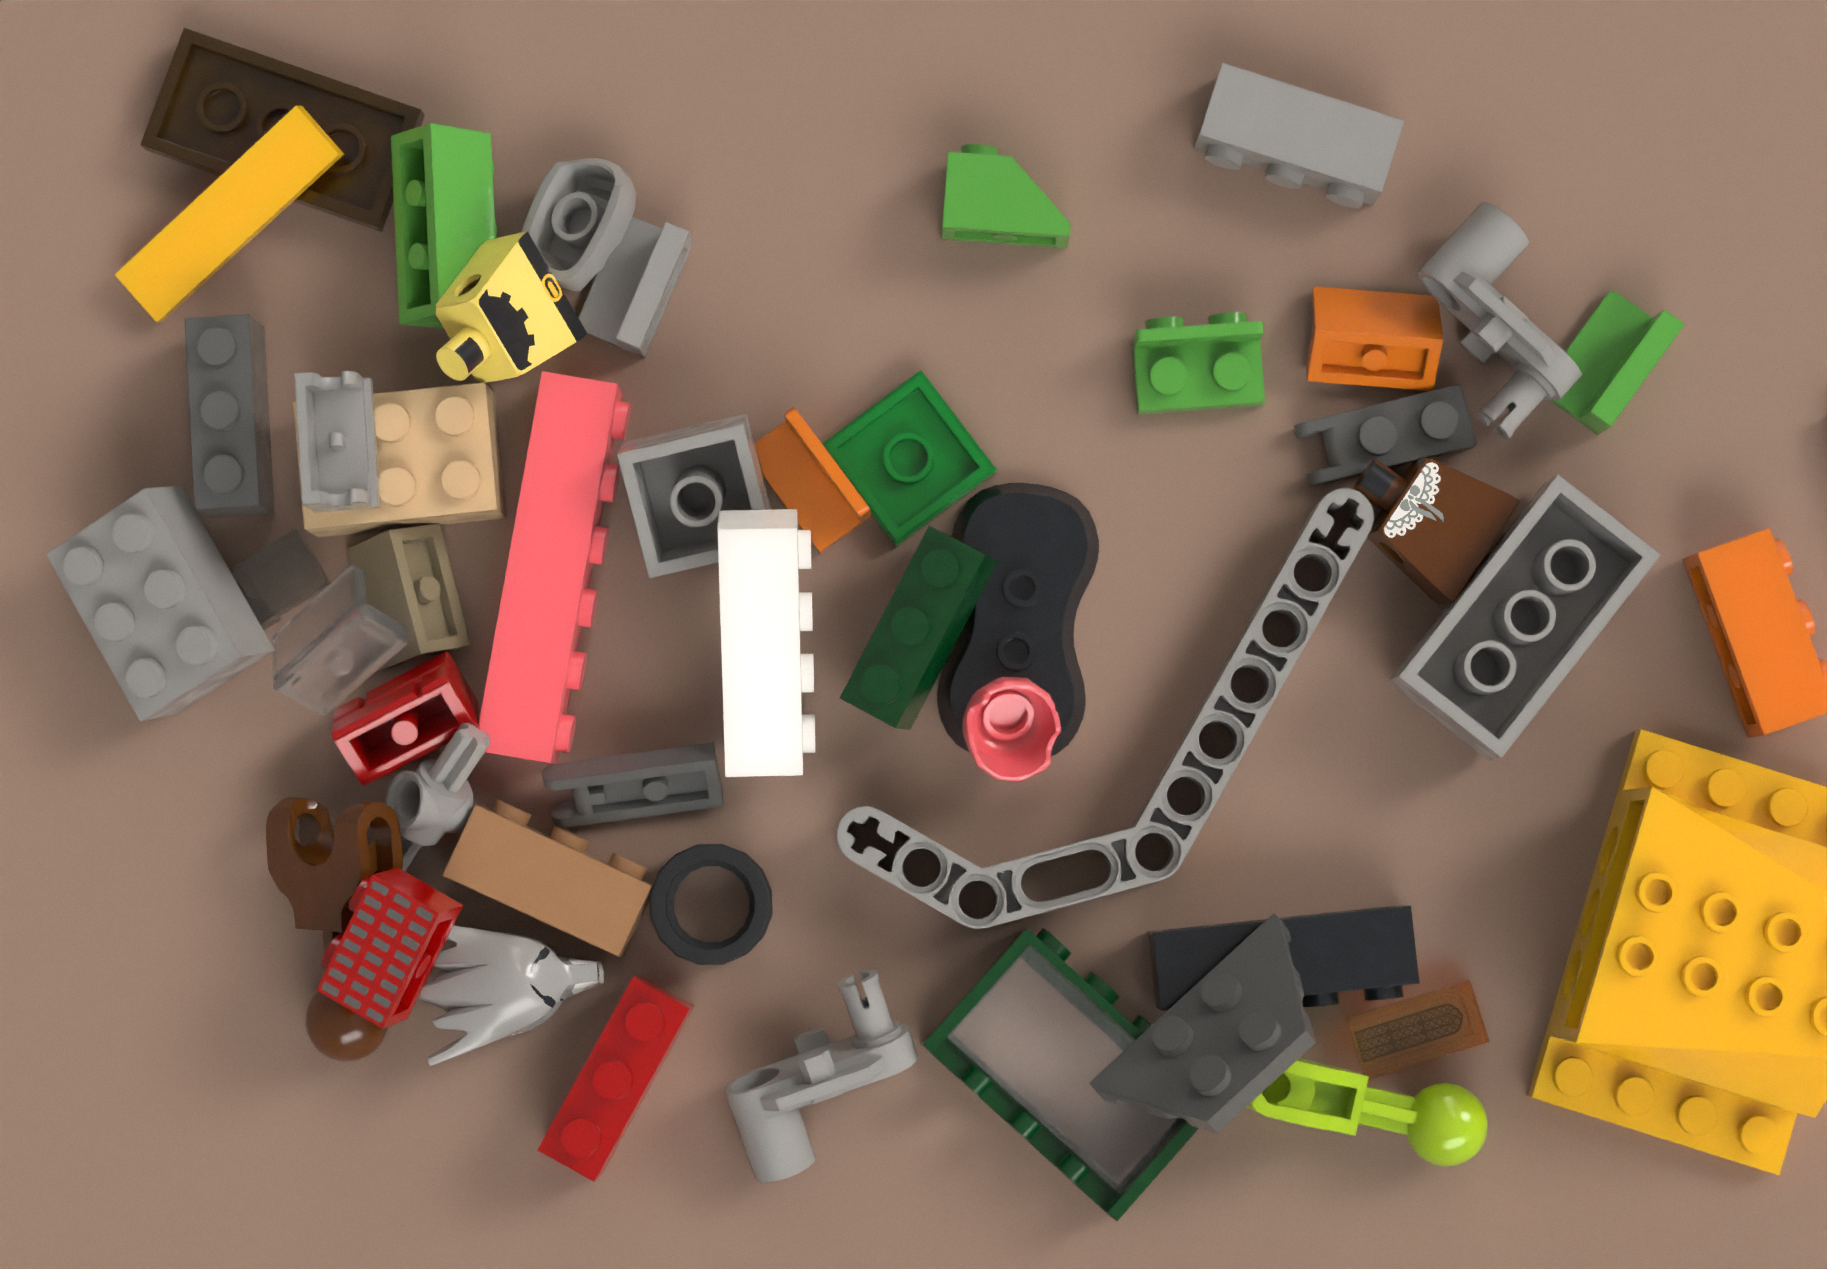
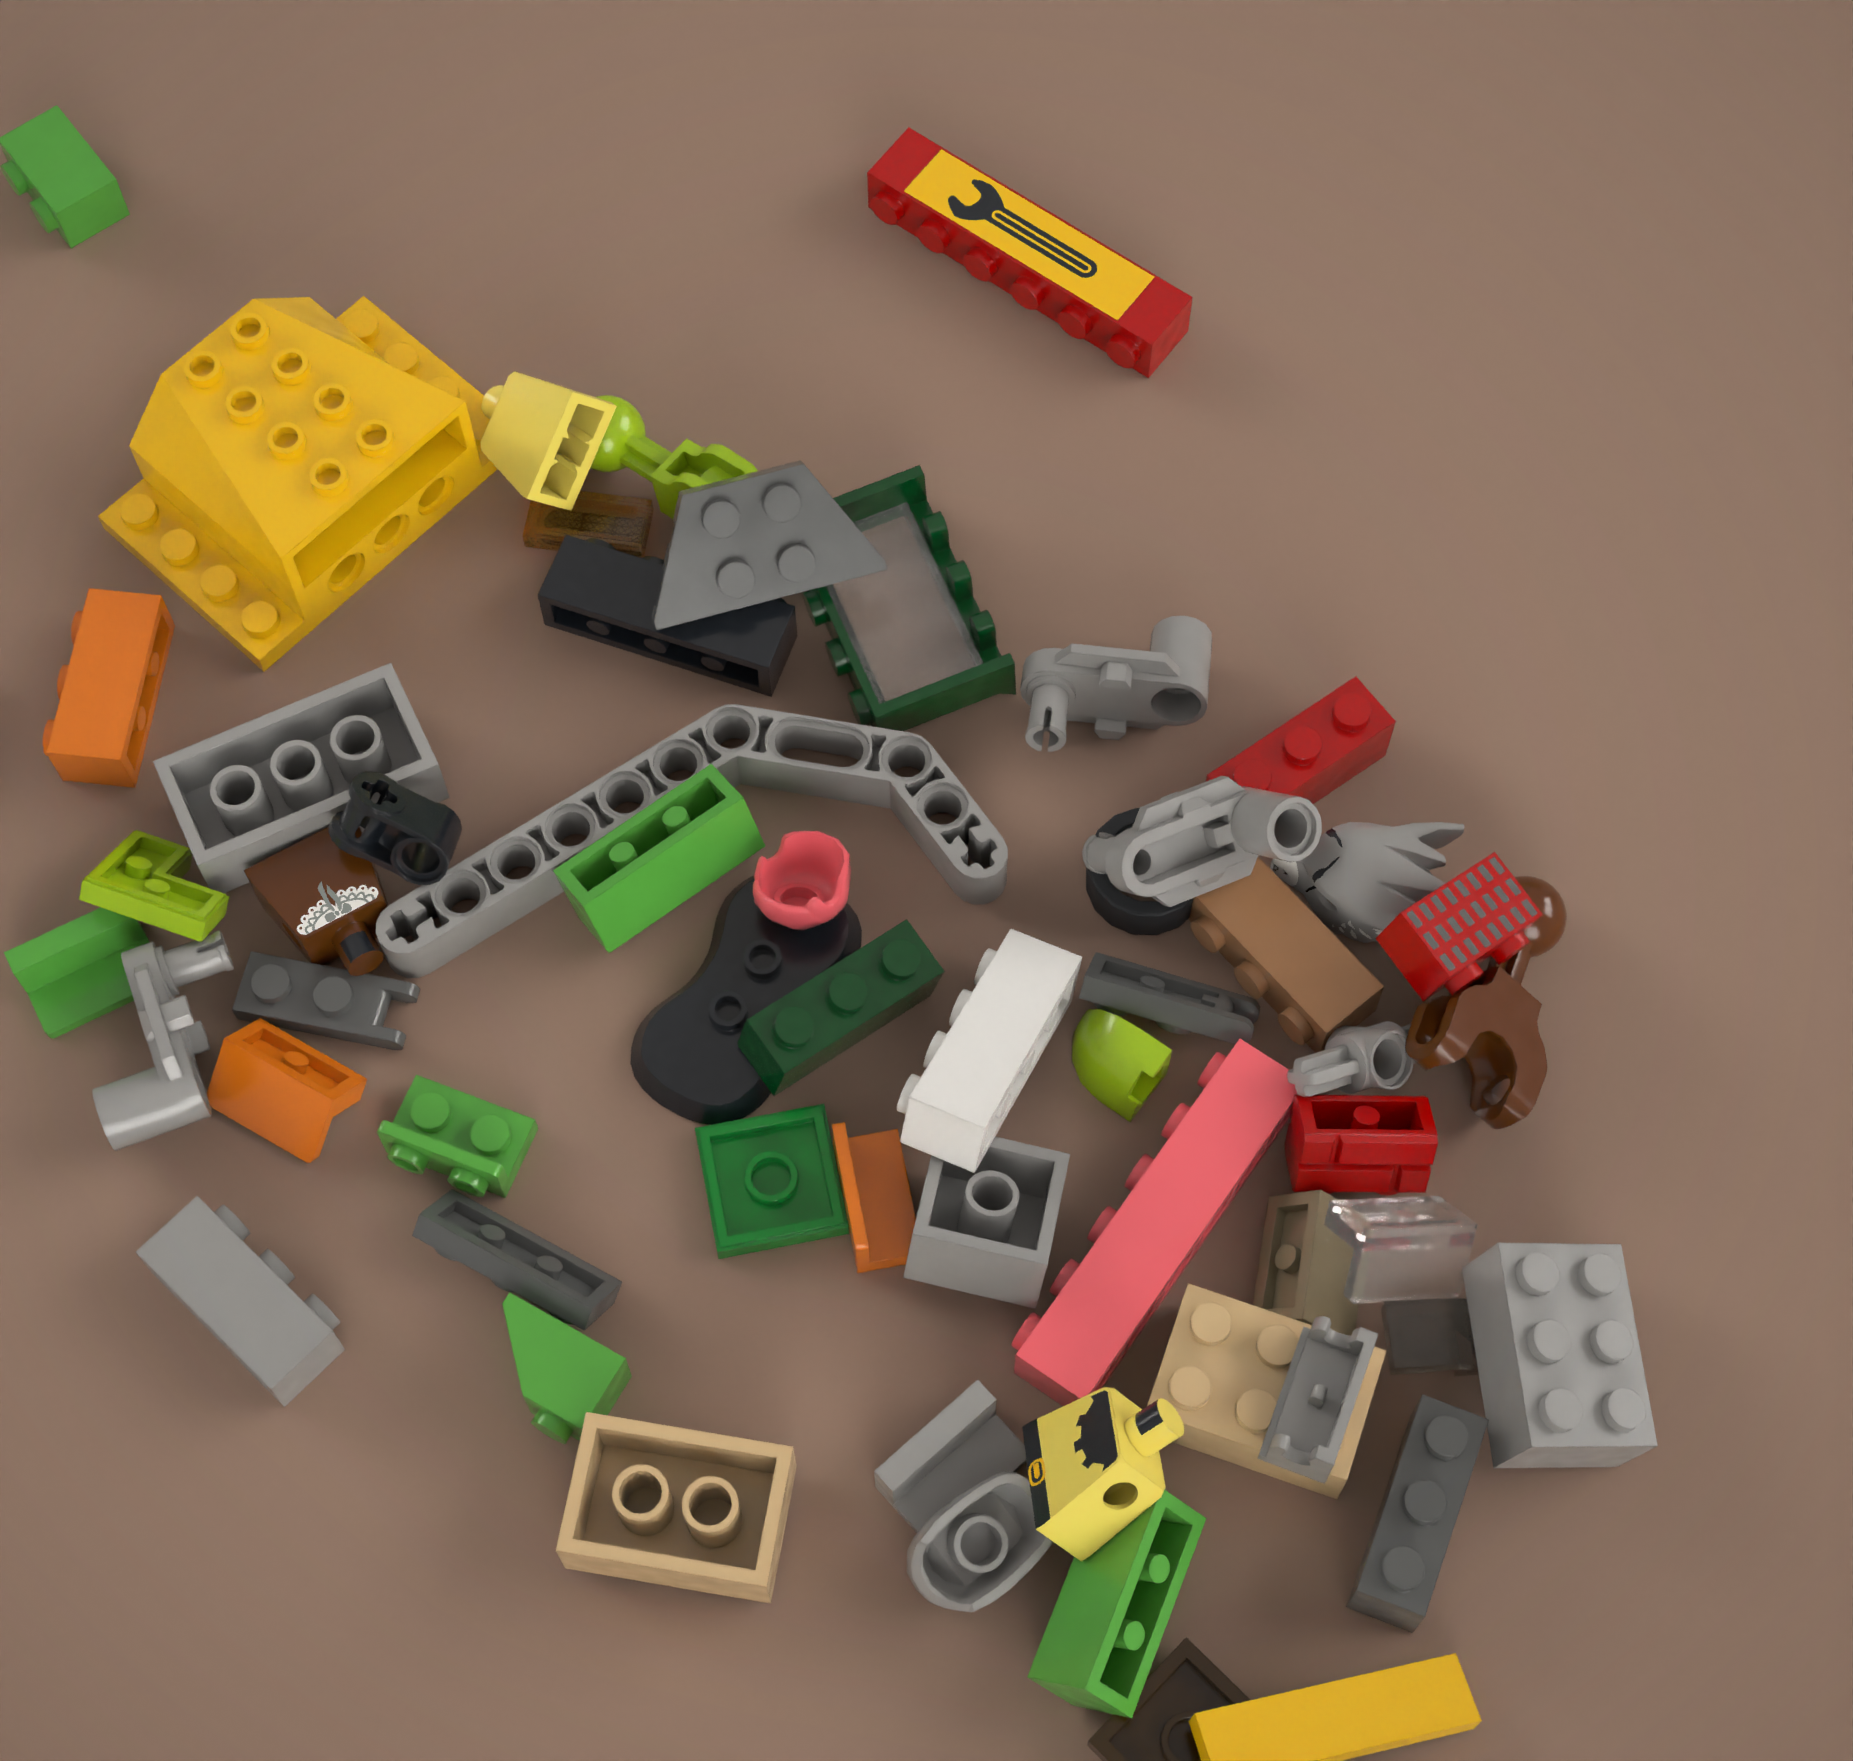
camera: 155 degrees left, 20 degrees down
(657, 924) = (1203, 840): none -> light grey piece
(658, 706) = (1118, 1061): none -> lime brick
(837, 130) = (677, 1507): none -> tan brick
(1085, 280) = (517, 1259): none -> dark grey plate
(1155, 696) = (660, 858): none -> bright green brick
(1395, 598) = (401, 829): none -> black piece
(1498, 1076) = (543, 437): none -> light yellow torso
(1599, 435) = (146, 884): none -> lime tile

